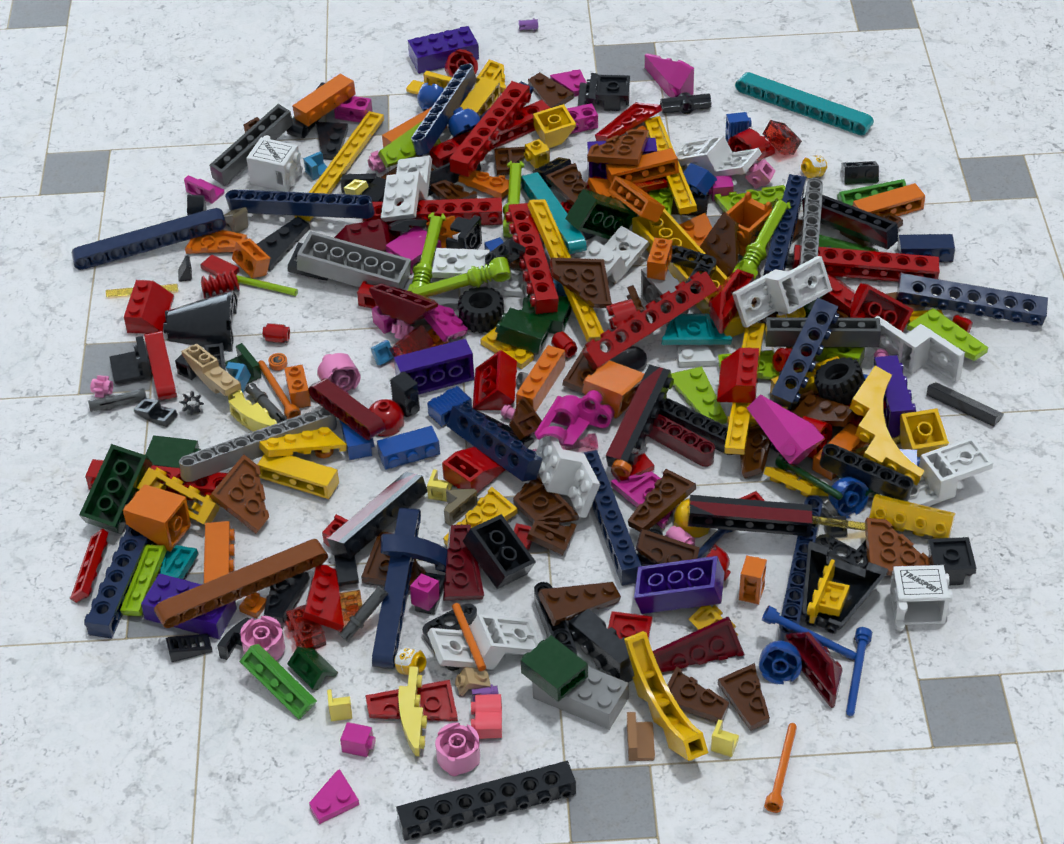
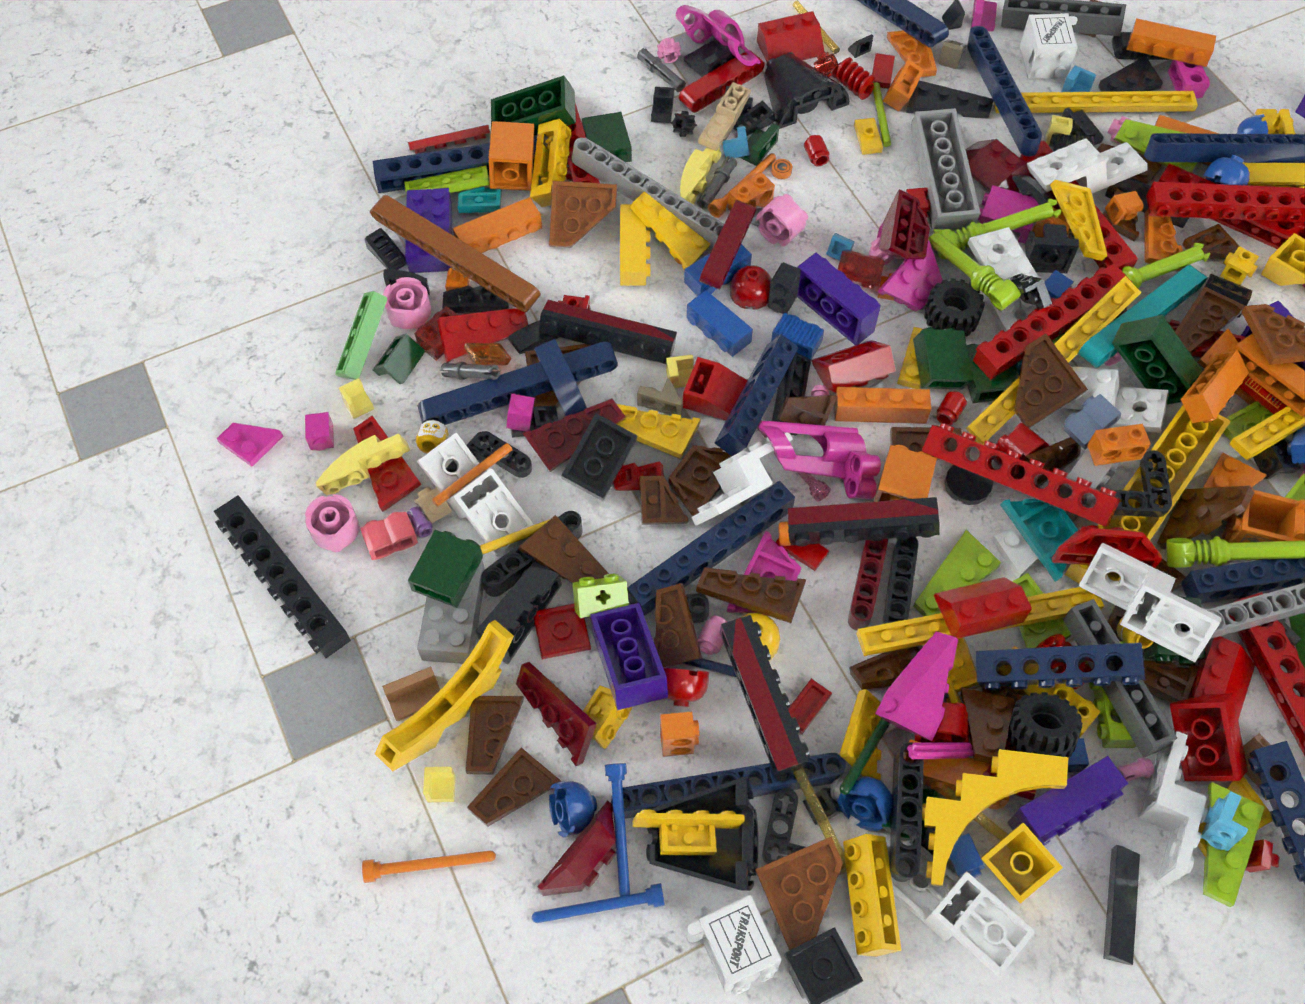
camera: 65 degrees right, 15 degrees up
(99, 345) = (719, 26): none -> dark pink panel
(192, 294) = (826, 63): none -> clear red gear
(280, 300) = (868, 136): none -> yellow plate
(451, 207) = (1082, 217): none -> yellow wing
(453, 186) = (1124, 207): none -> orange brick
(536, 632) = (511, 538): none -> yellow bar
(619, 589) = (588, 589): none -> brick
(628, 269) = (1096, 415): none -> sand blue brick
(834, 436) = (946, 750): none -> dark pink axle
(941, 321) = (1219, 828): none -> medium azure bracket

